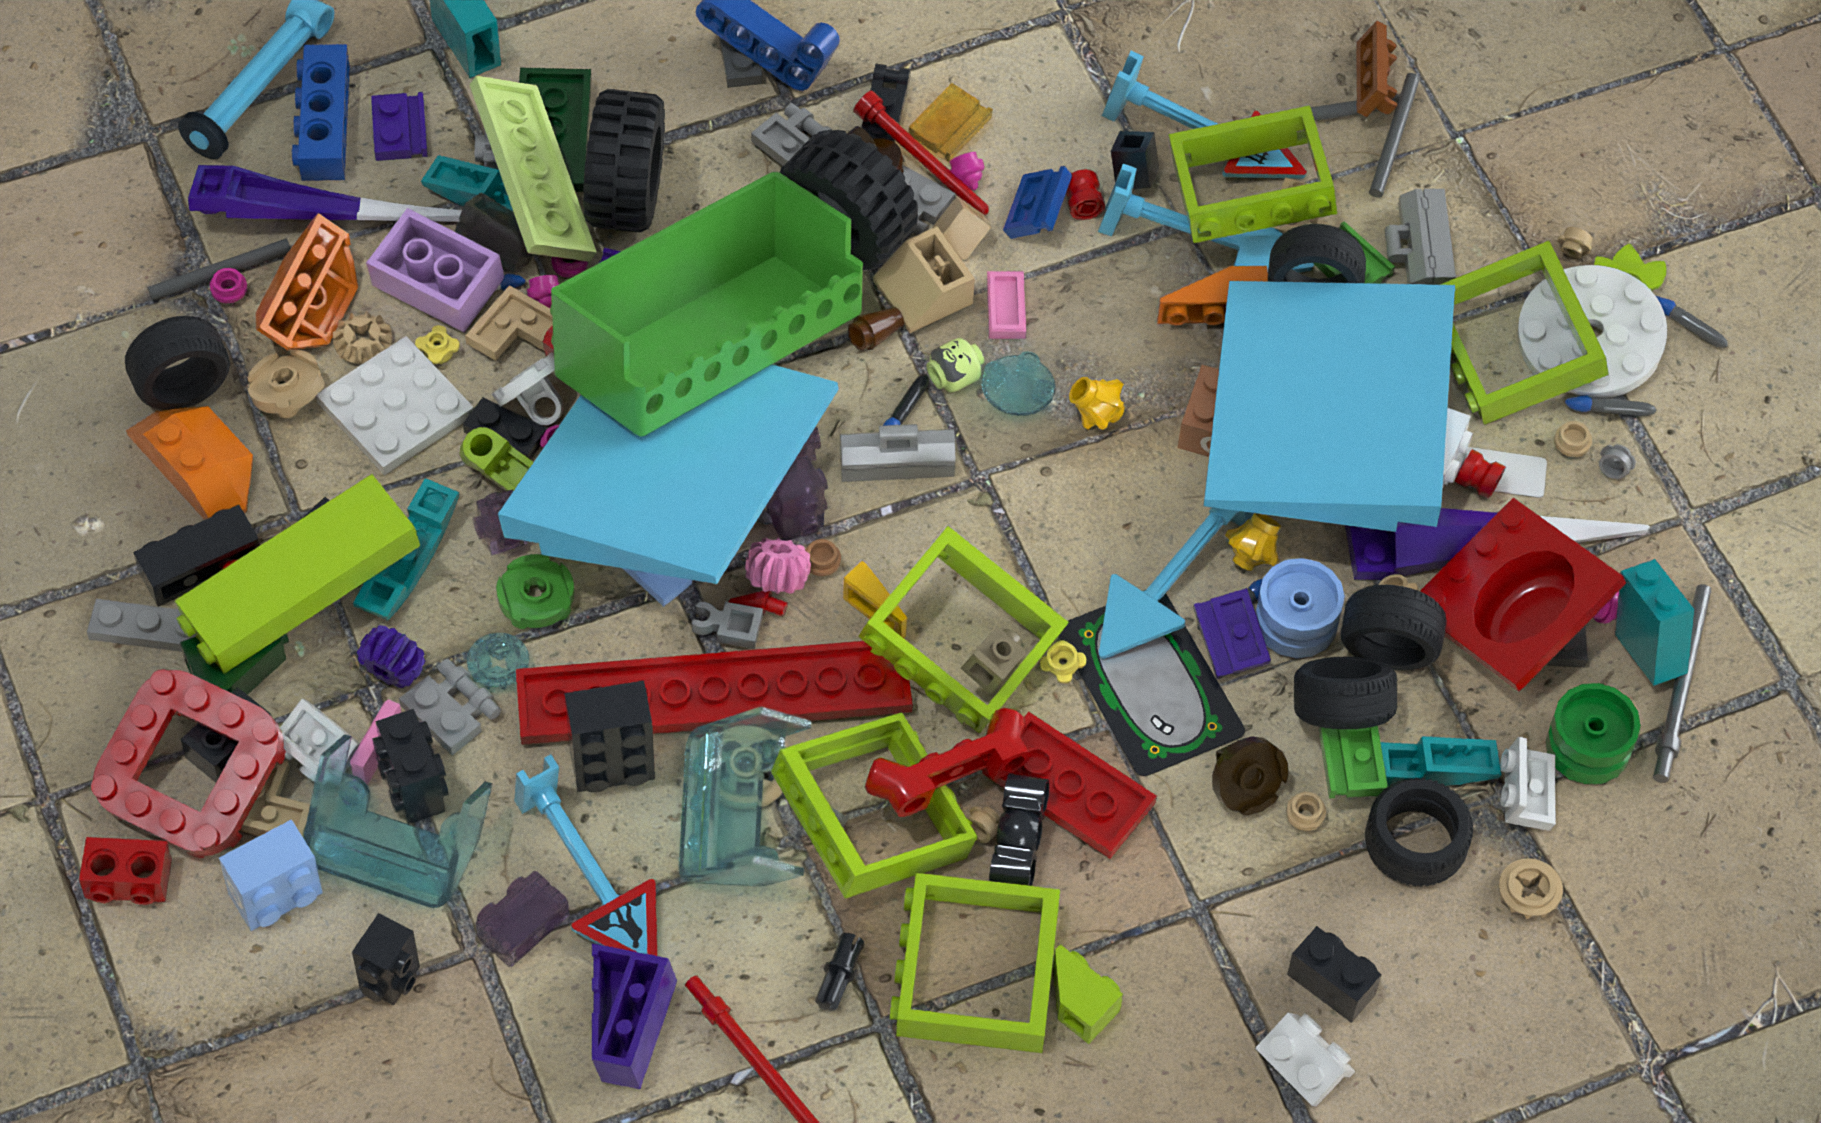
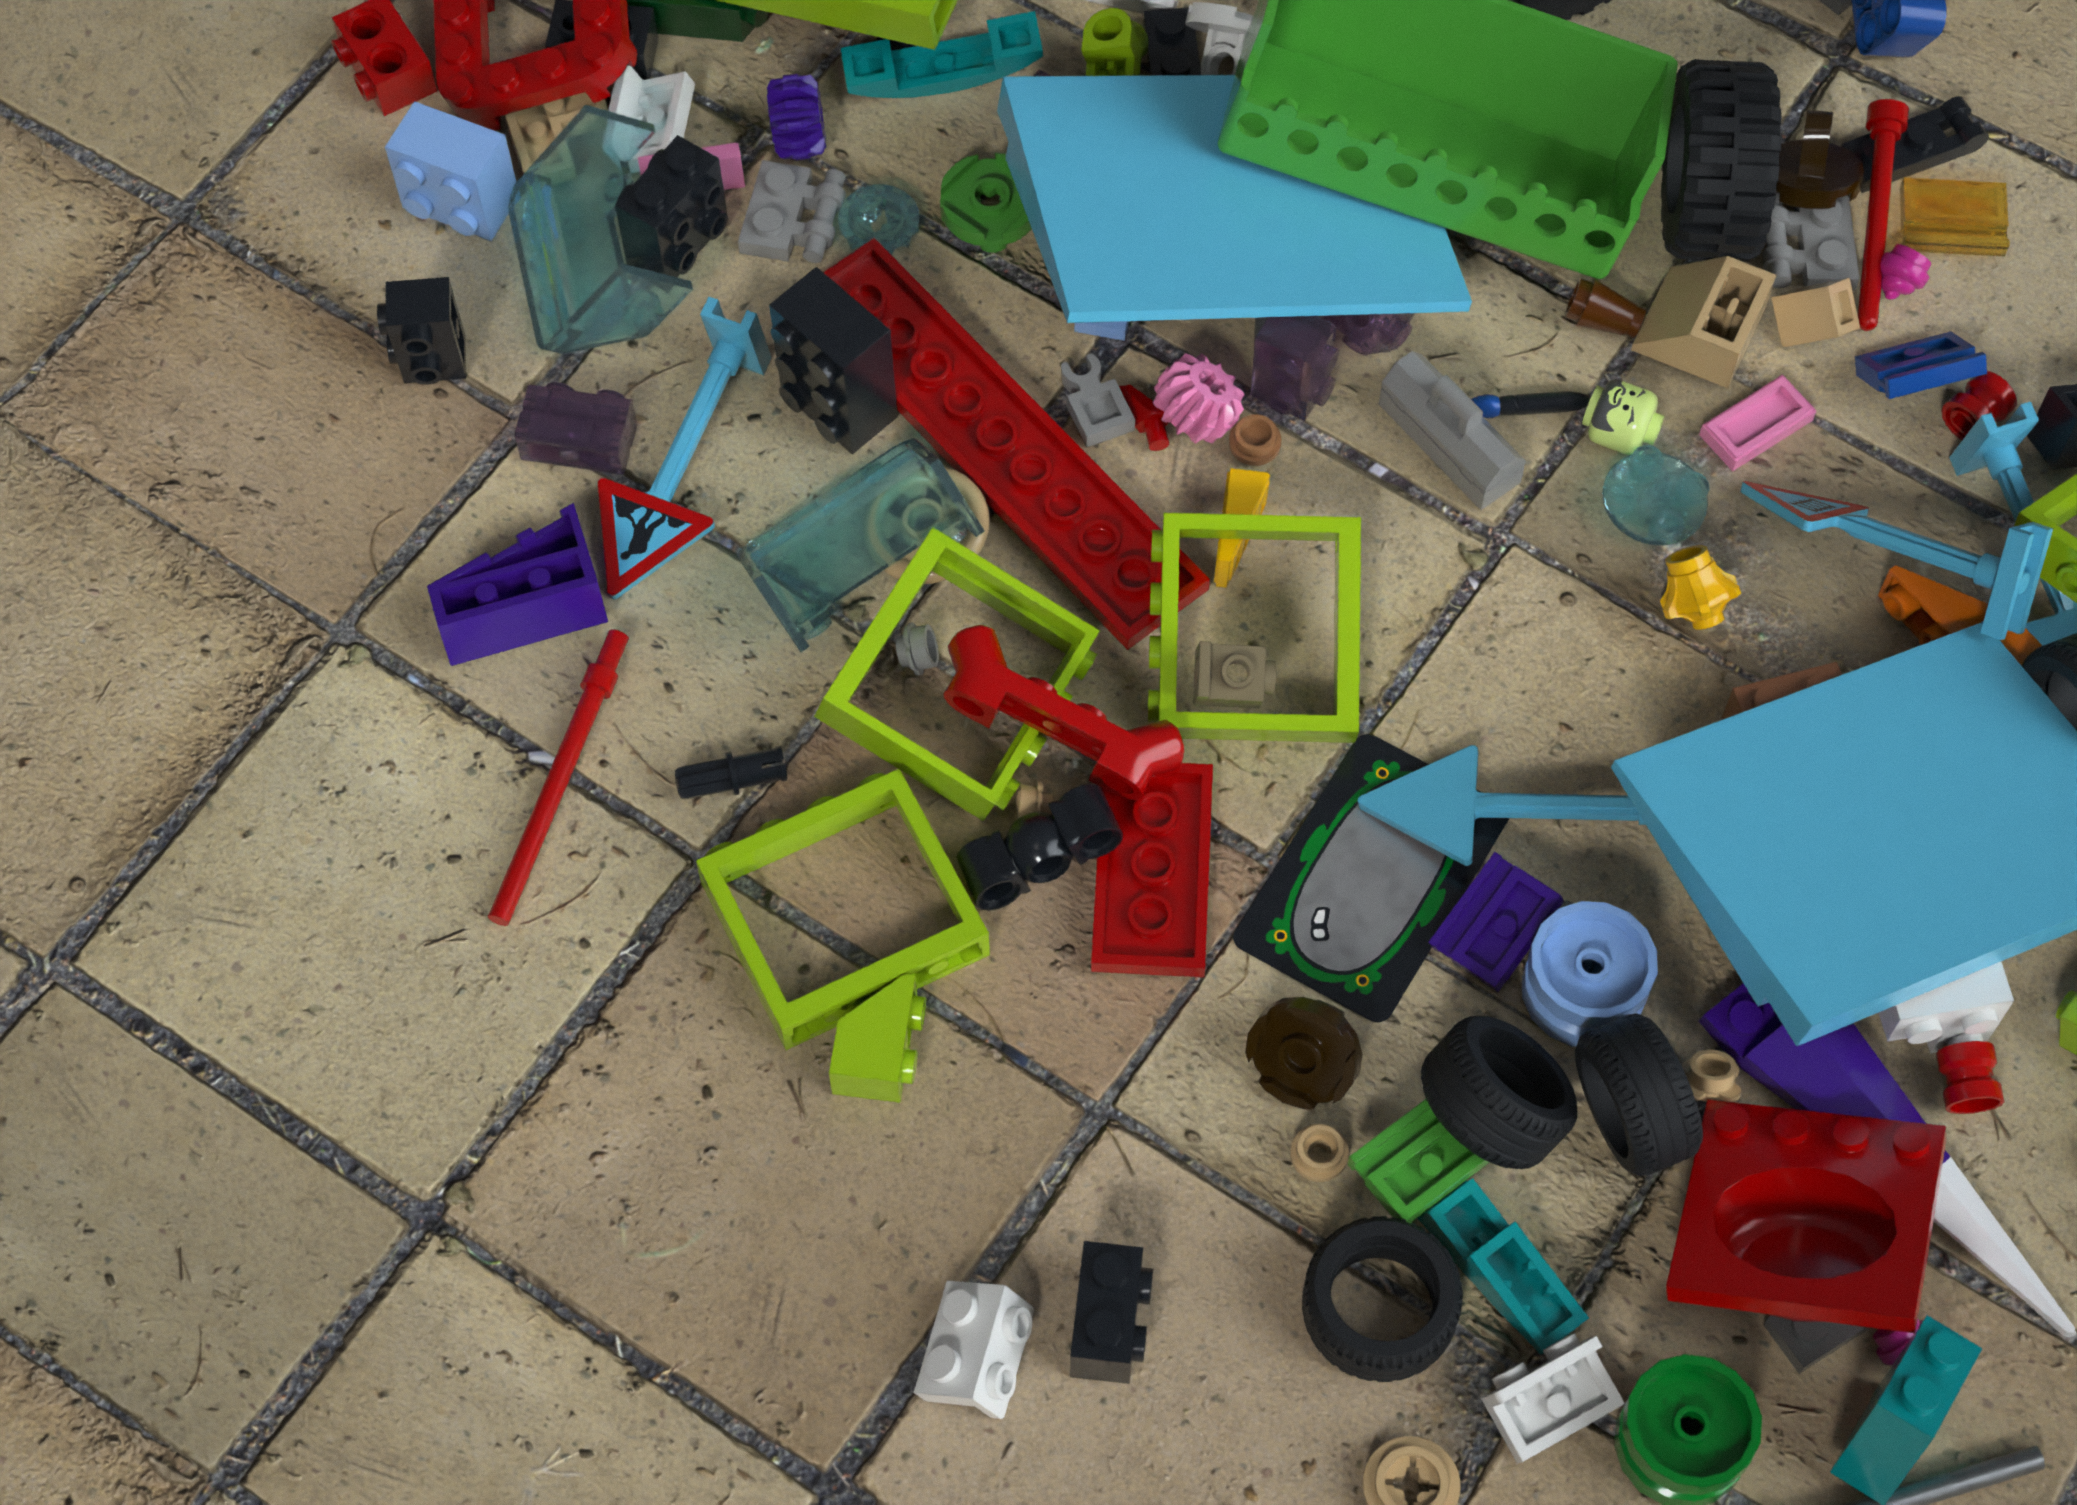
camera: 60 degrees right, 5 degrees up
(784, 137) = (1790, 69): light grey plate -> none
(1060, 651) = (1313, 751): light yellow plate -> none
(1097, 310) = (2010, 578): none -> medium azure piece
(1255, 542) = (1639, 874): yellow rock -> none
(1522, 475) = (2023, 1128): white sticker -> none

